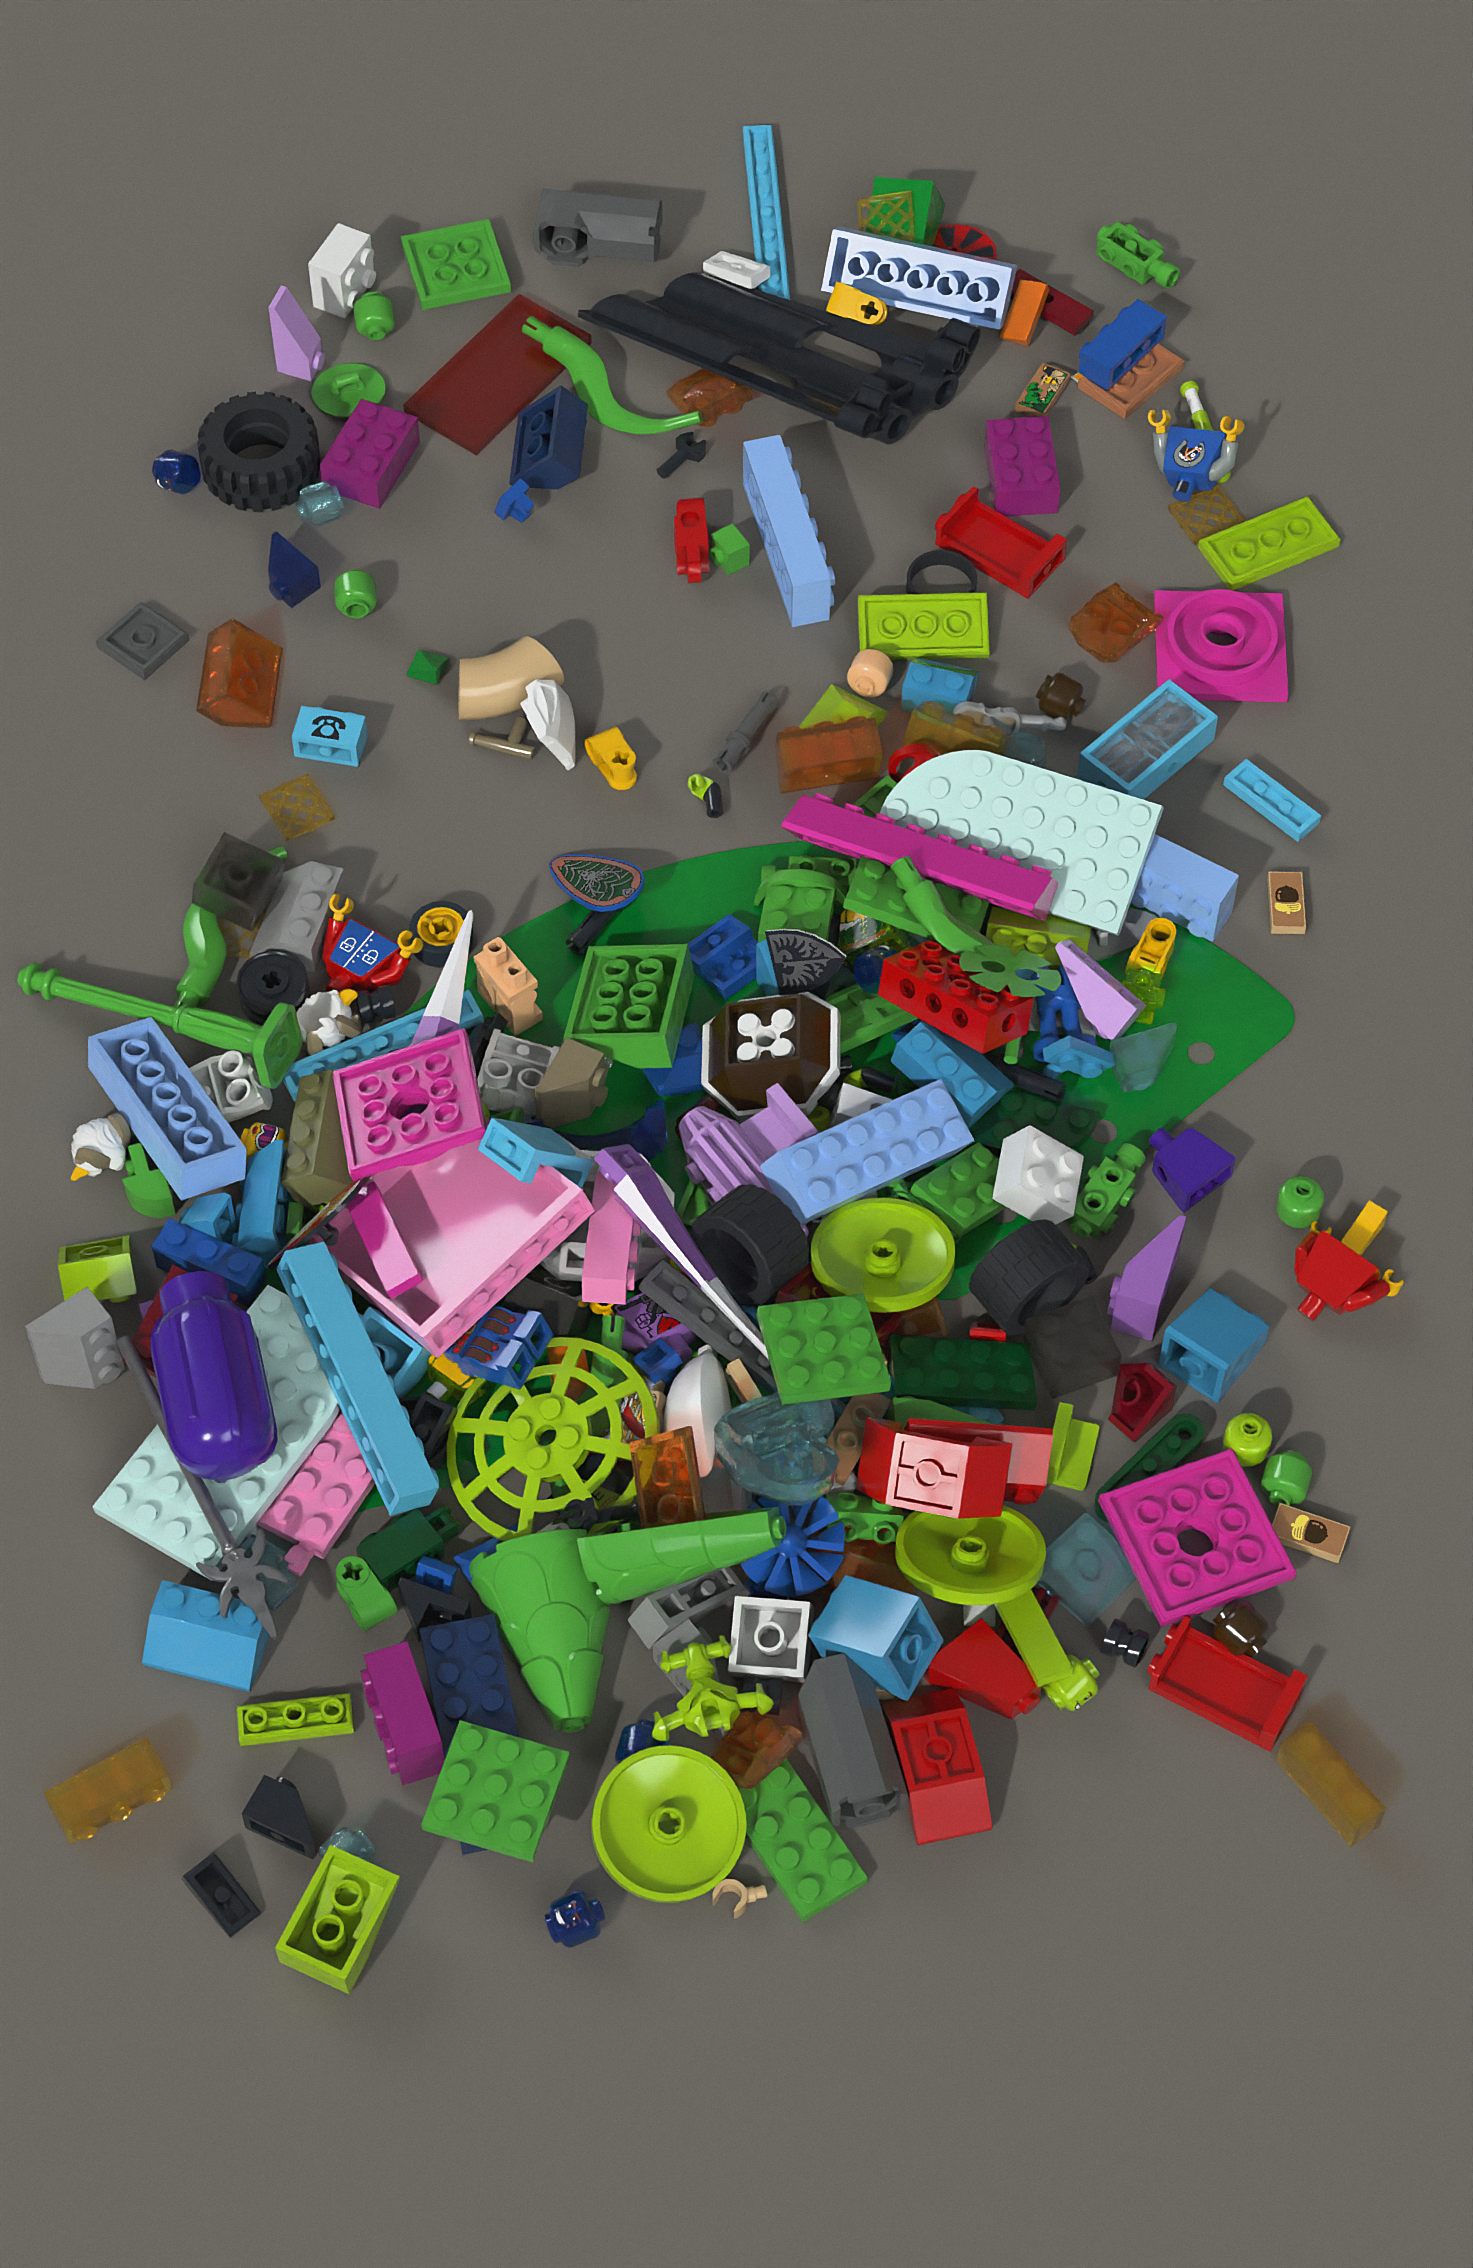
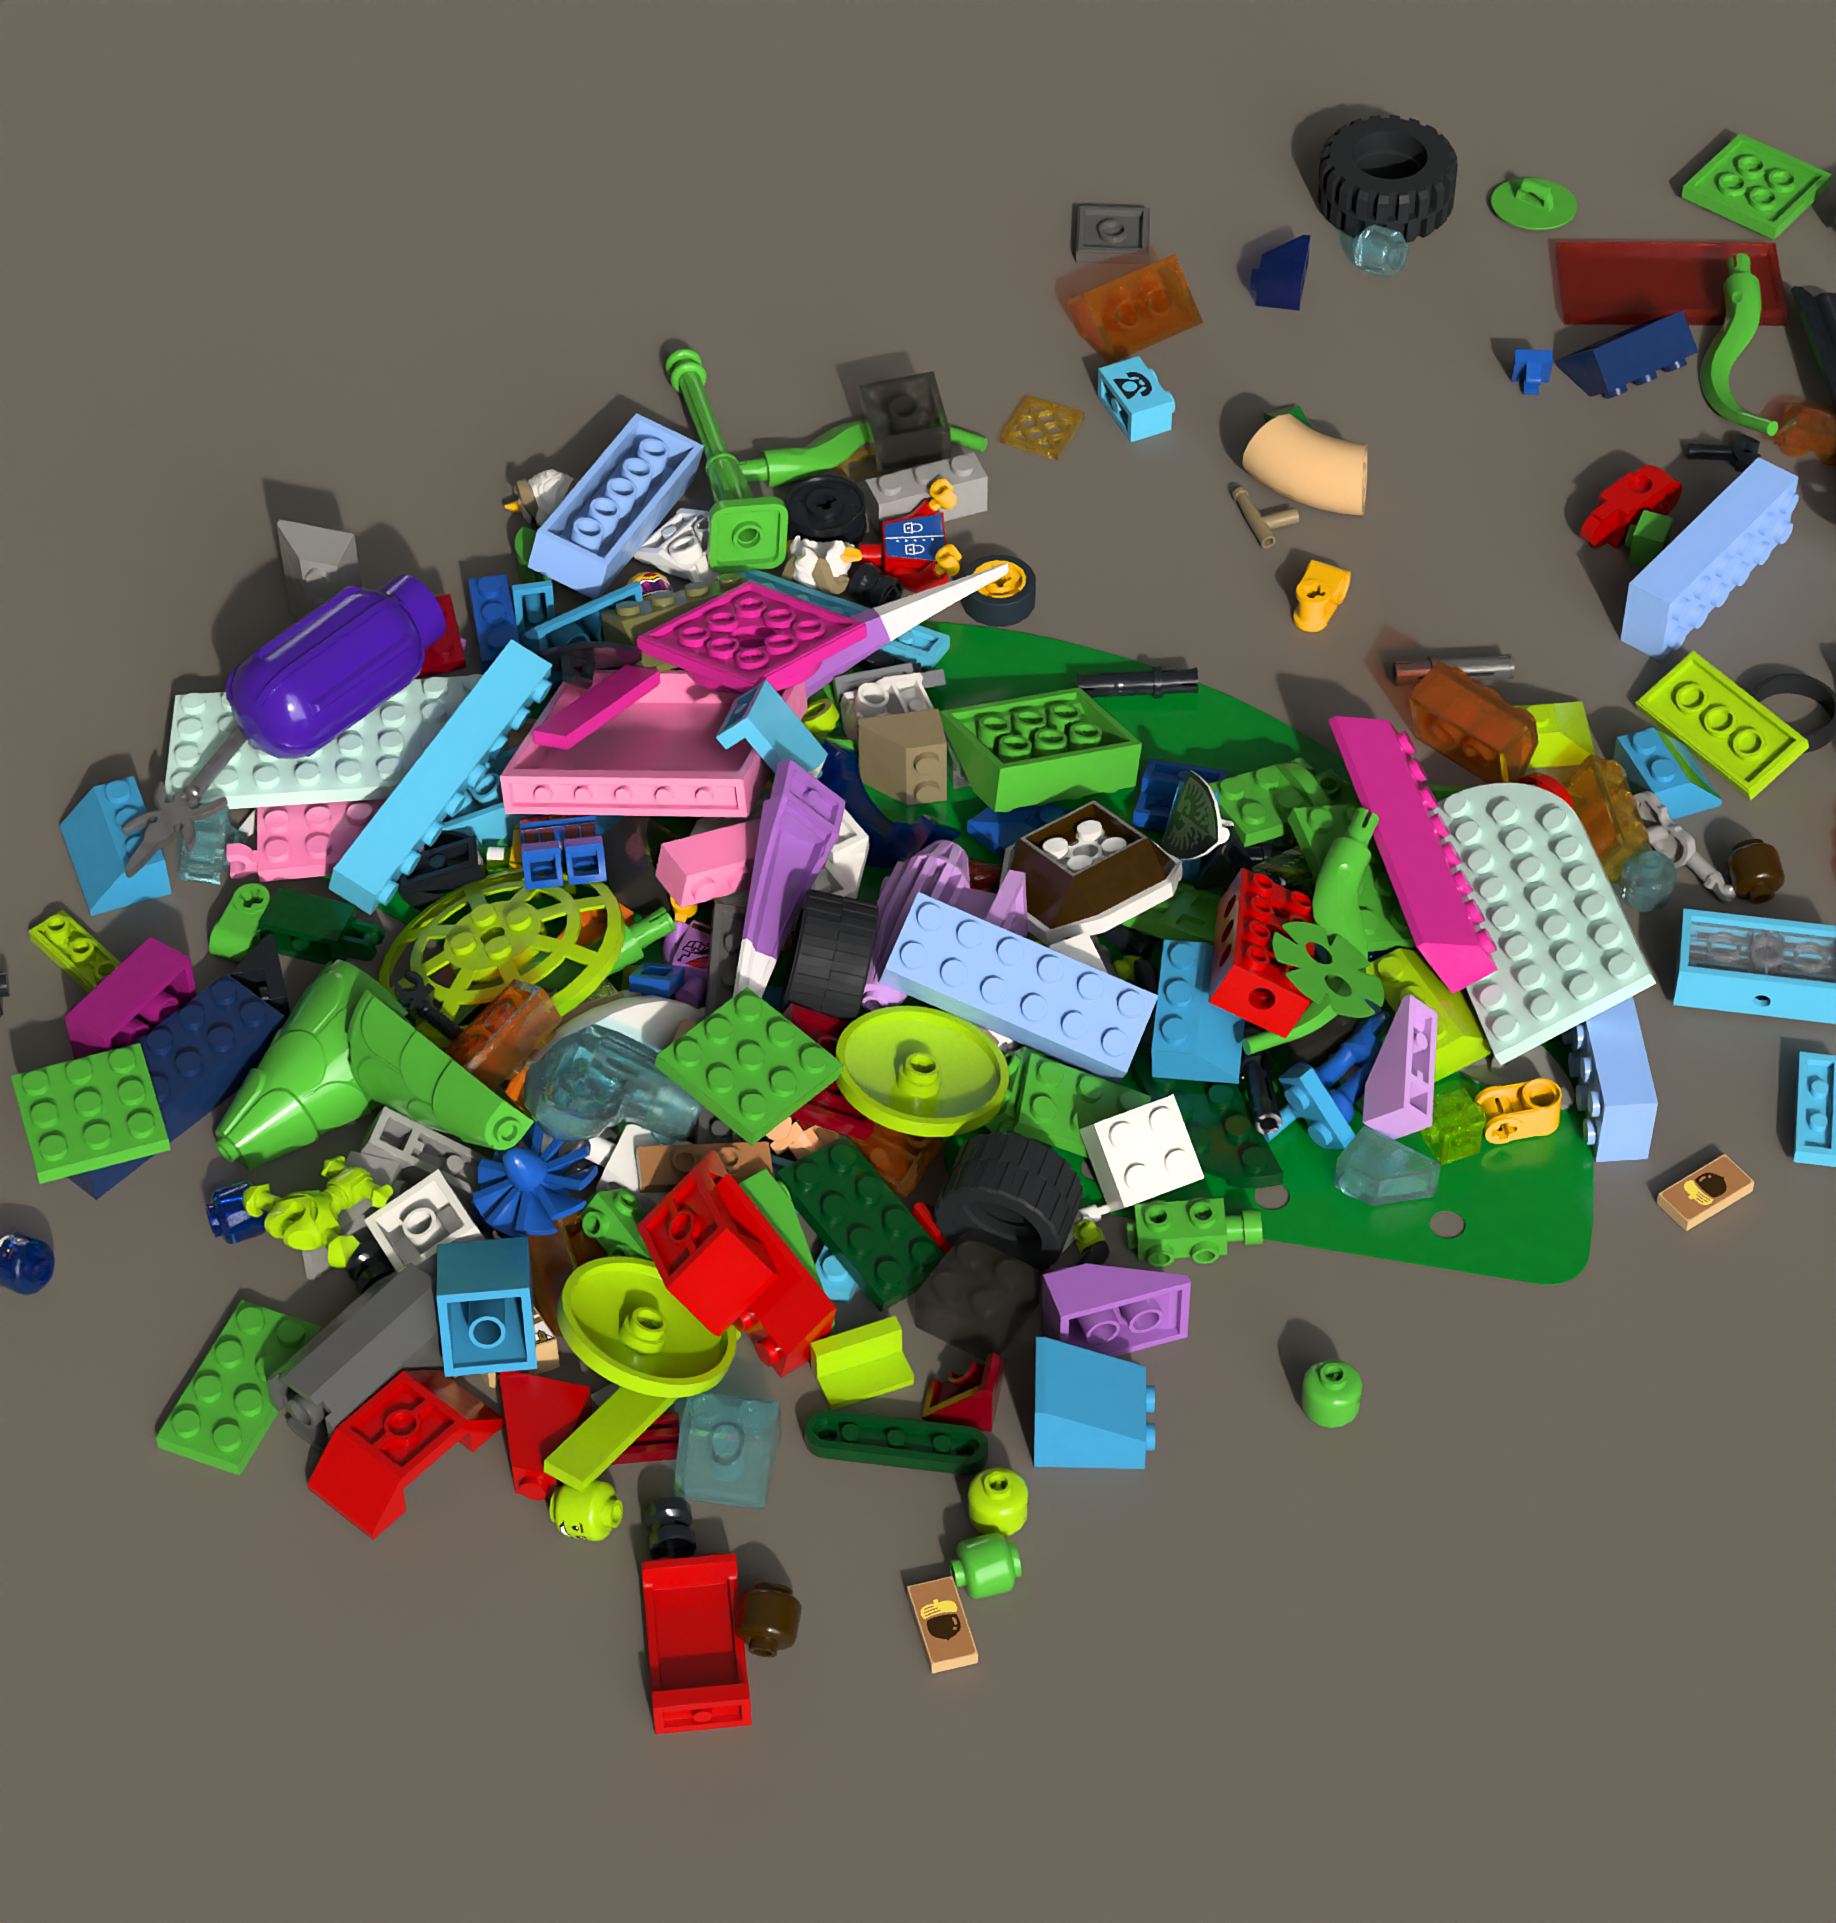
camera: 55 degrees right, 10 degrees down
(101, 1266) = (424, 560): lime slope -> none
(176, 471) = (1305, 146): clear blue head -> none
(294, 338) = (1530, 120): lavender slope -> none
(341, 270) = (1647, 114): white brick -> none
(355, 593) = (1307, 326): bright green head -> none
(370, 452) = (1473, 249): magenta brick -> none
(374, 315) = (1630, 167): bright green head -> none
(436, 1574) = (301, 966): blue tile -> none
(507, 986) = (971, 659): light nougat hips -> none
(552, 719) = (1302, 521): white slope -> none
(597, 880) = (1161, 654): shield -> none
(668, 1824) = (169, 1271): lime dish -> none
(708, 792) = (1356, 683): arm -> none
(747, 1894) = (148, 1382): tan piece -> none
(754, 1748) = (302, 1294): clear orange slope -> none
(870, 673) = (1619, 714): light nougat head -> none
(1189, 1165) = (1287, 1281): dark purple torso -> none
(1205, 1497) = (834, 1469): dark pink piece -> none
(1330, 1784) = (644, 1796): clear yellow brick -> none
(1337, 1276) = (1270, 1474): red torso -> none
(1365, 1228) = (1348, 1475): yellow piece -> none

